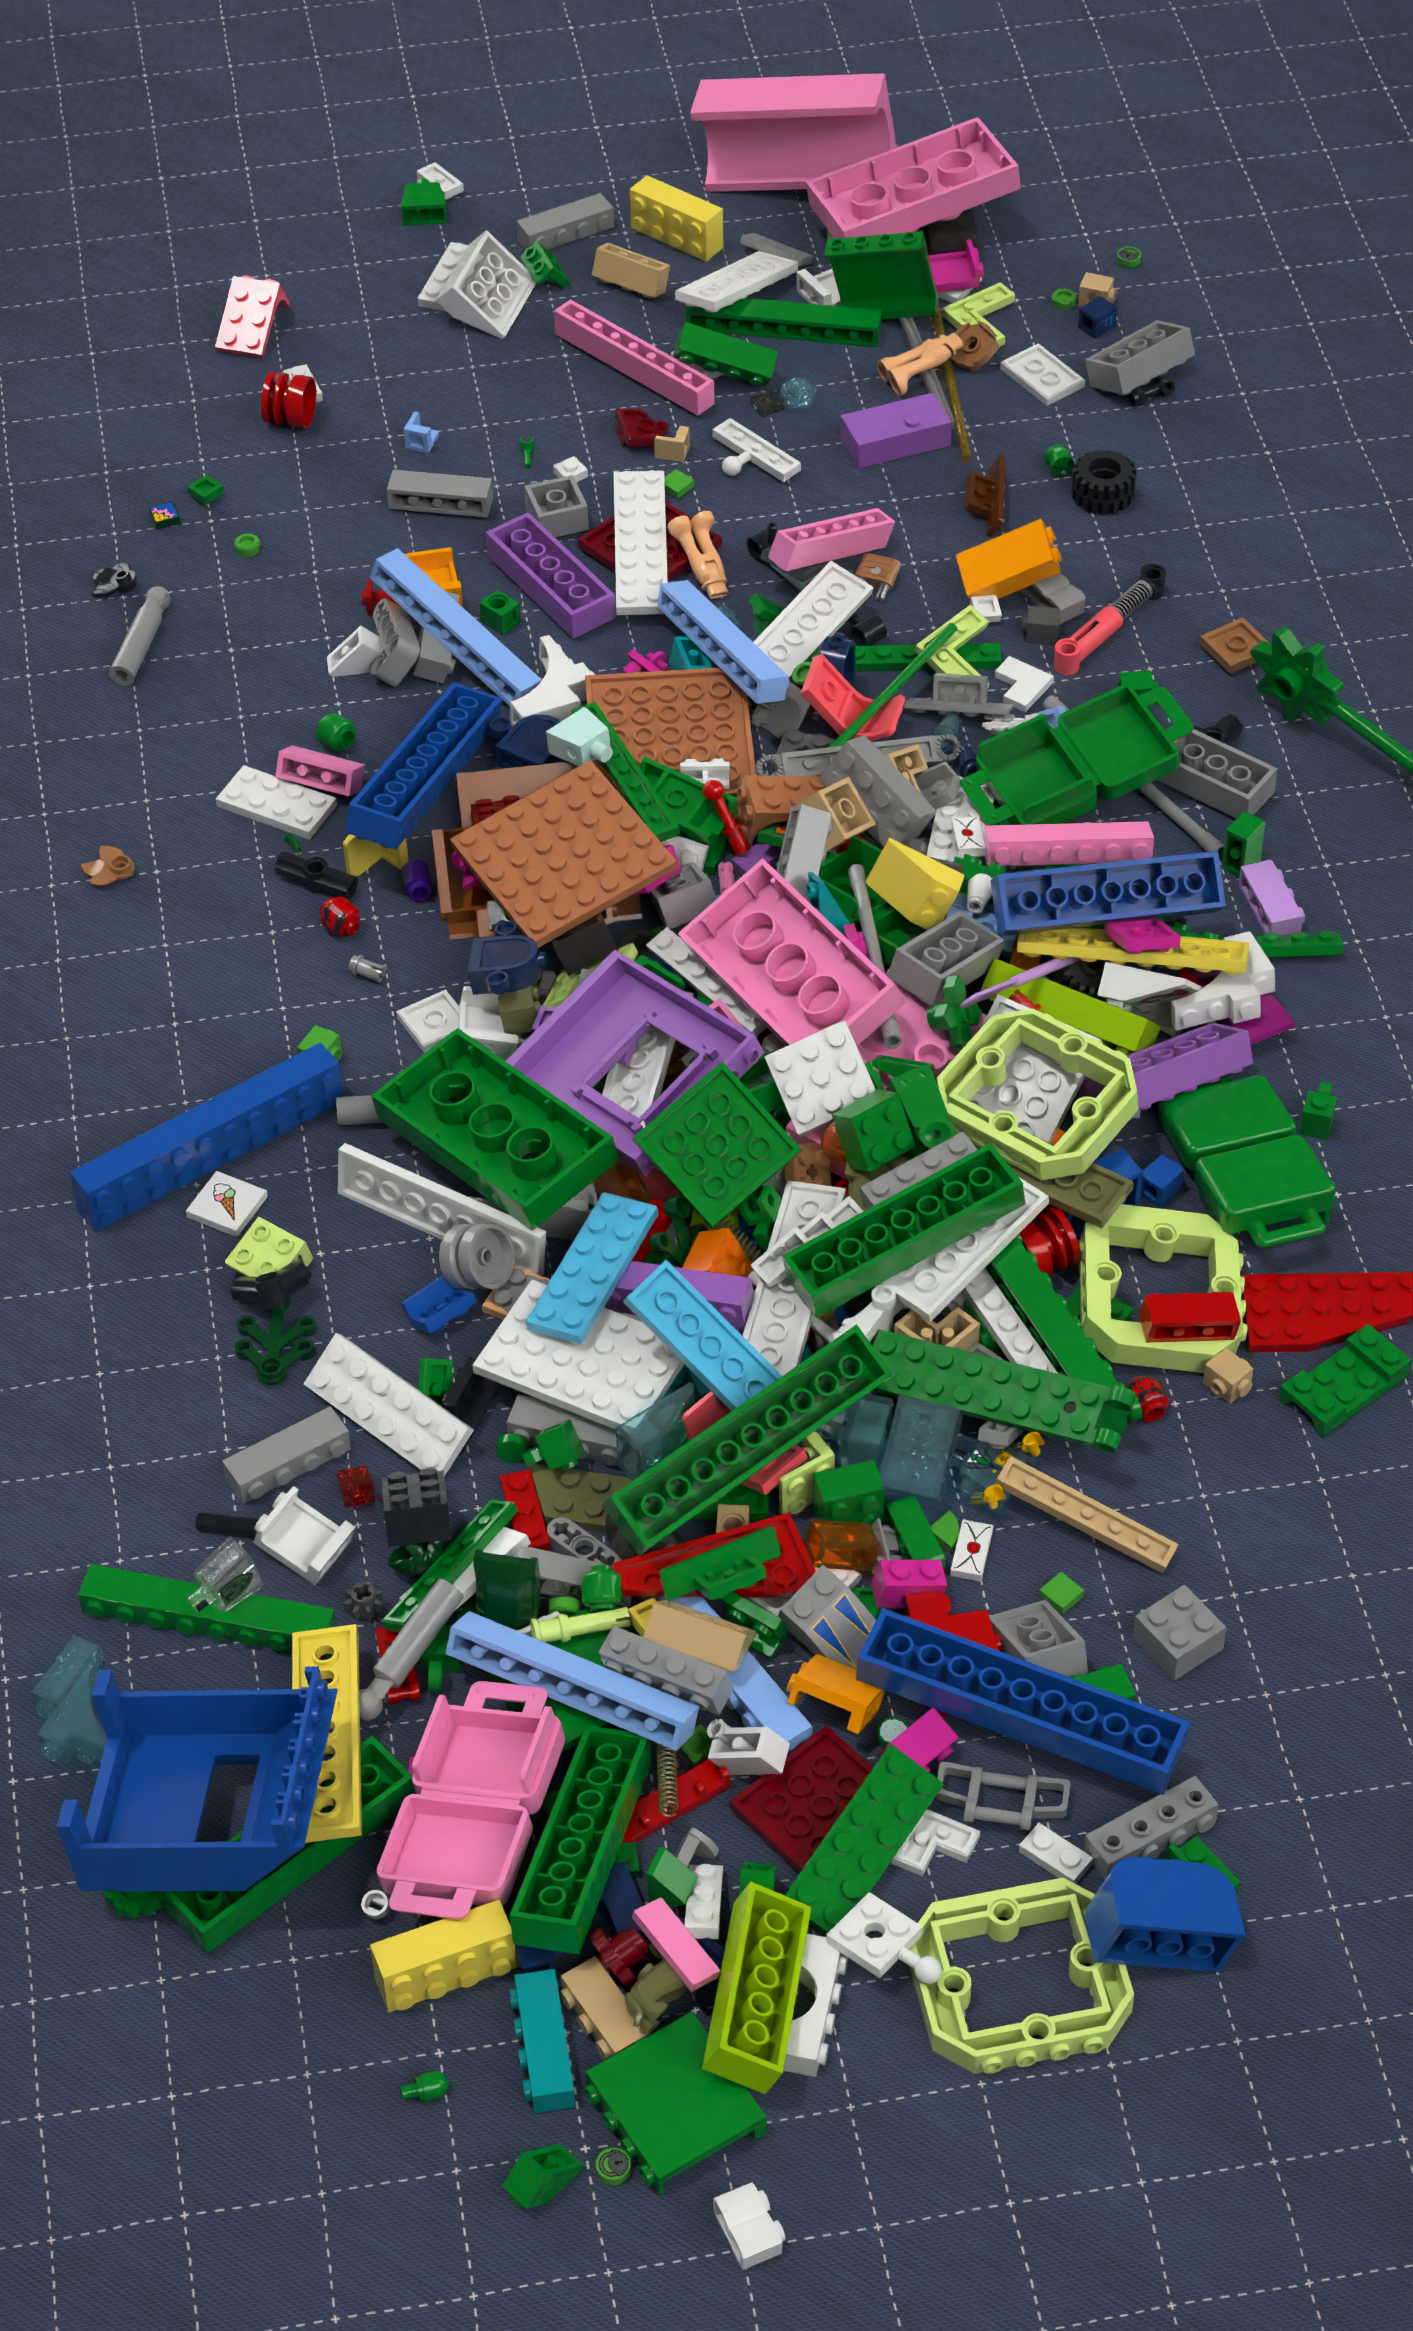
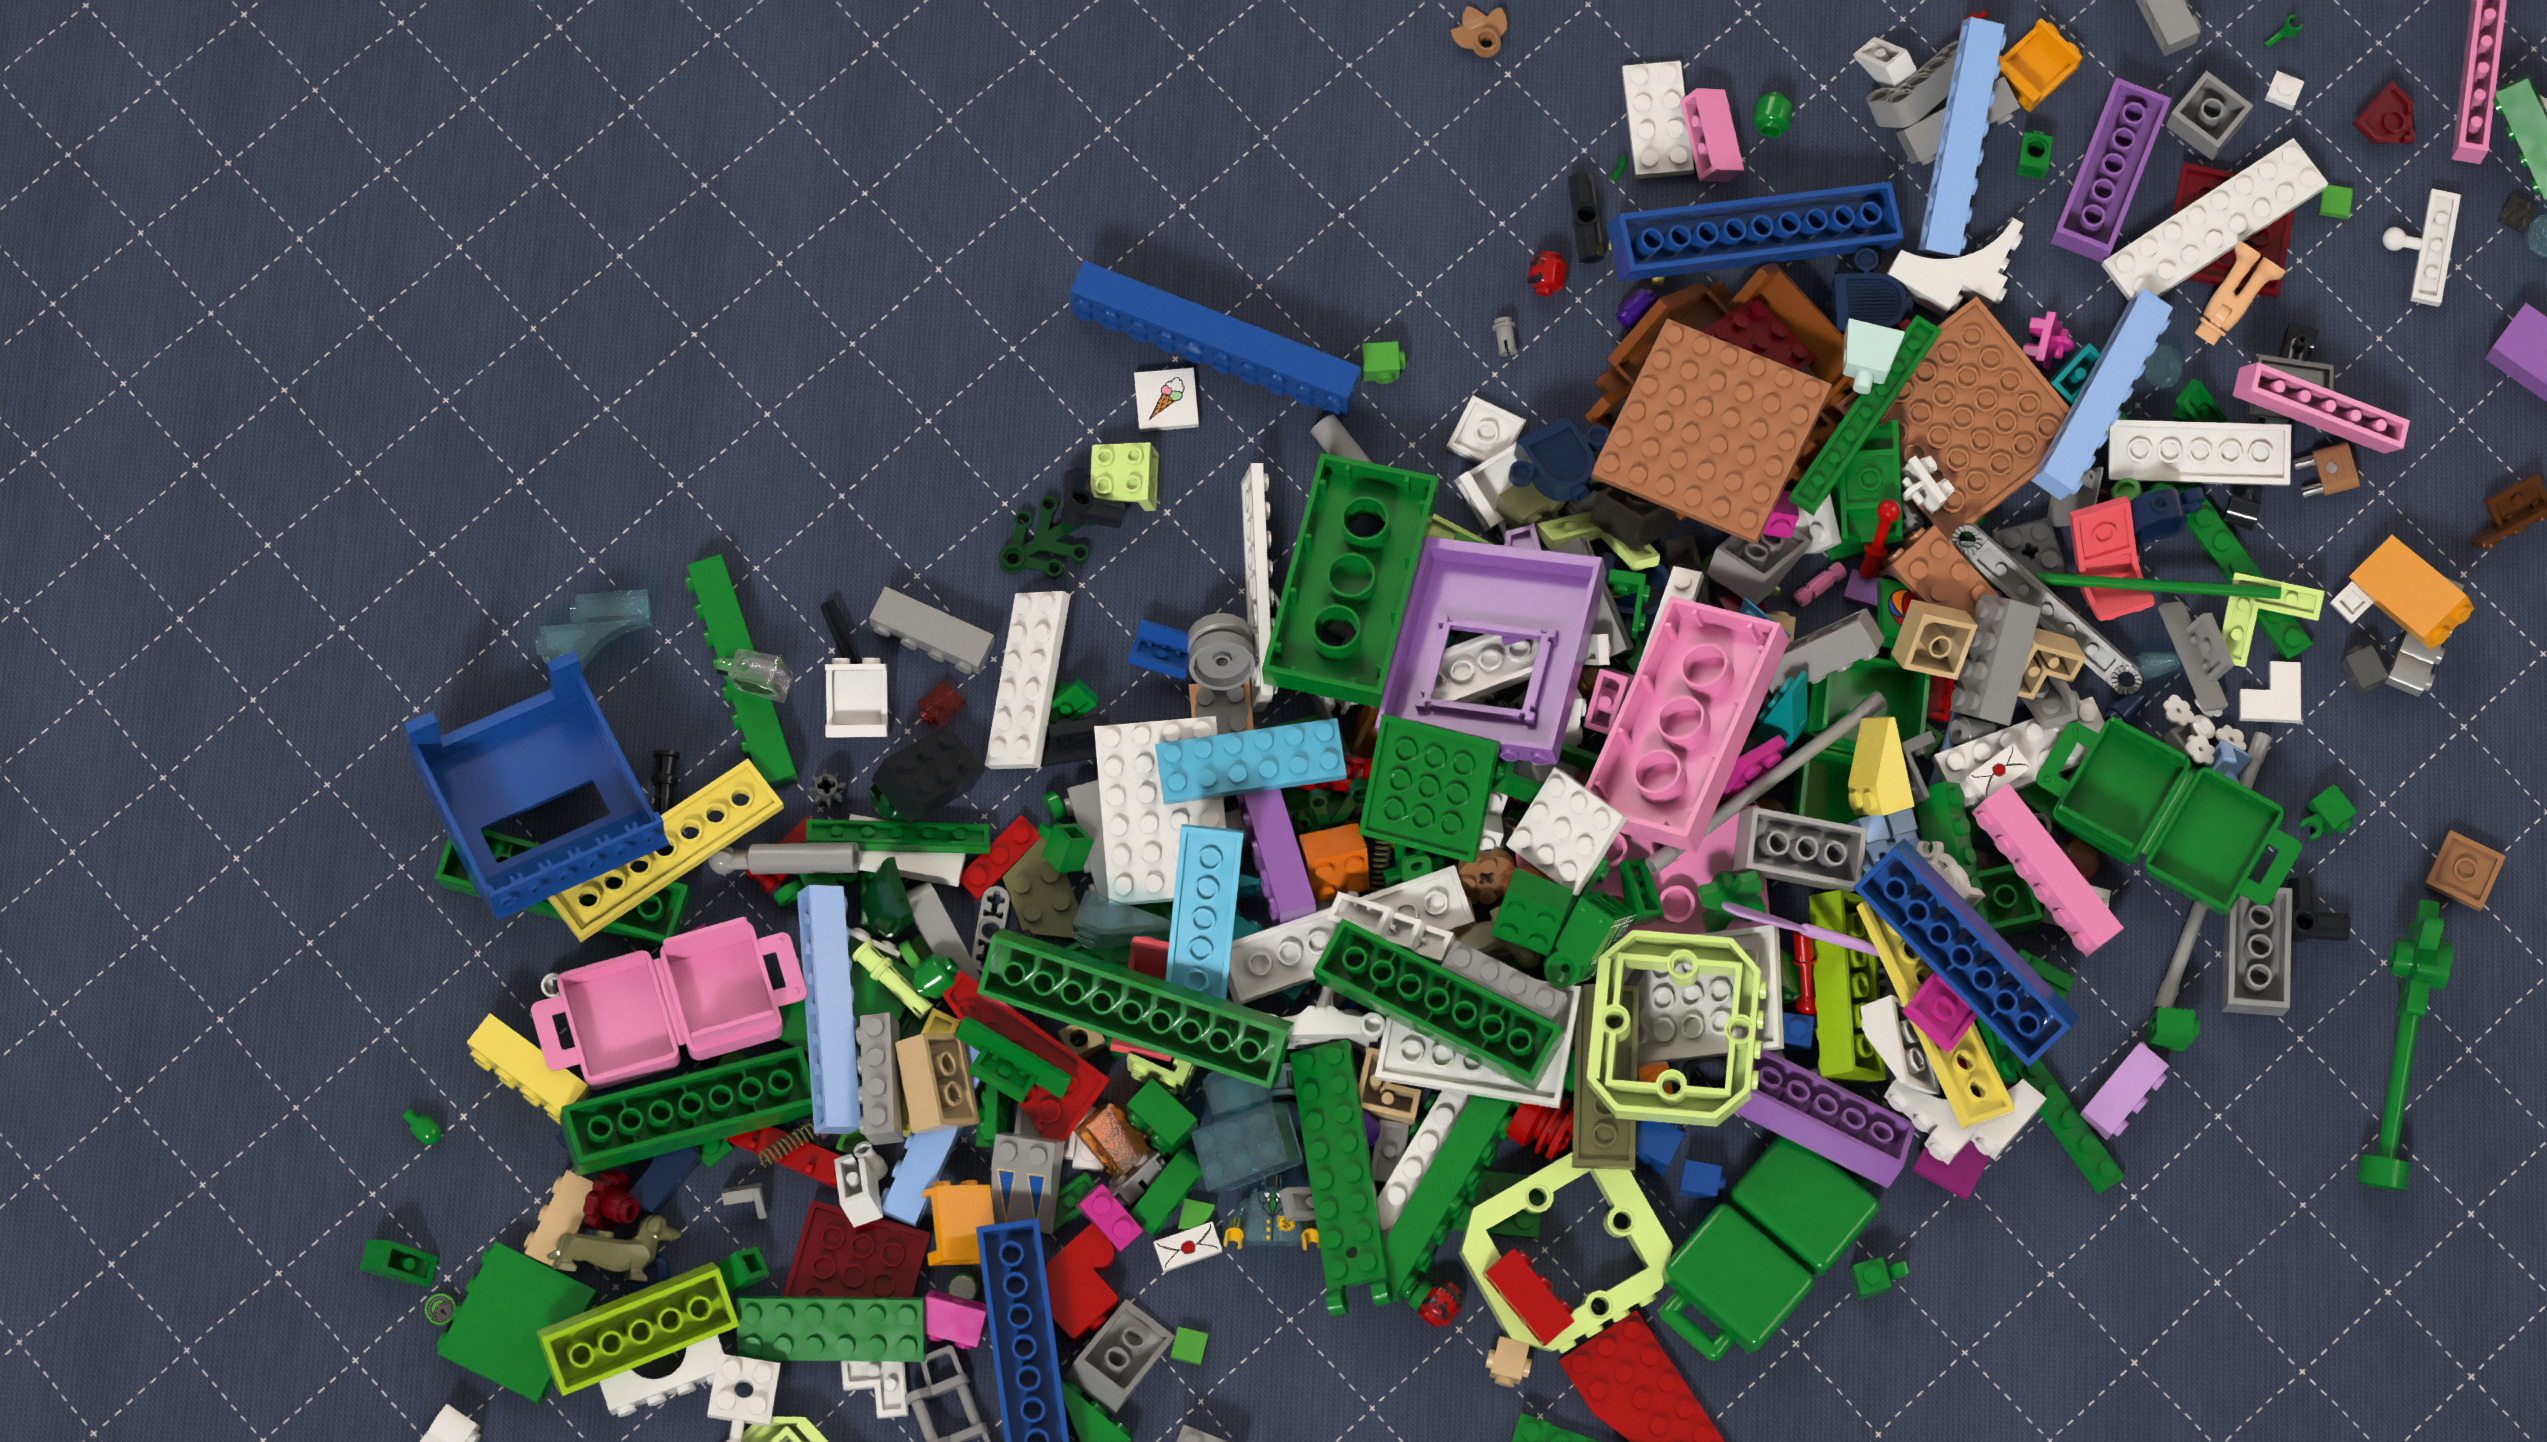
camera: 55 degrees right, 25 degrees up
(544, 2041) = (511, 1190): teal brick -> none
(669, 1879) = (699, 1201): green slope -> none
(673, 448) = (2386, 165): tan panel -> none
(676, 1944) = (637, 1243): bright pink tile -> none
(704, 1902) = (703, 1237): white plate -> none
(978, 892) = (1913, 829): white cone -> none
(1073, 650) = (2414, 728): piece -> none
(1086, 1514) = (1271, 1324): tan plate -> none

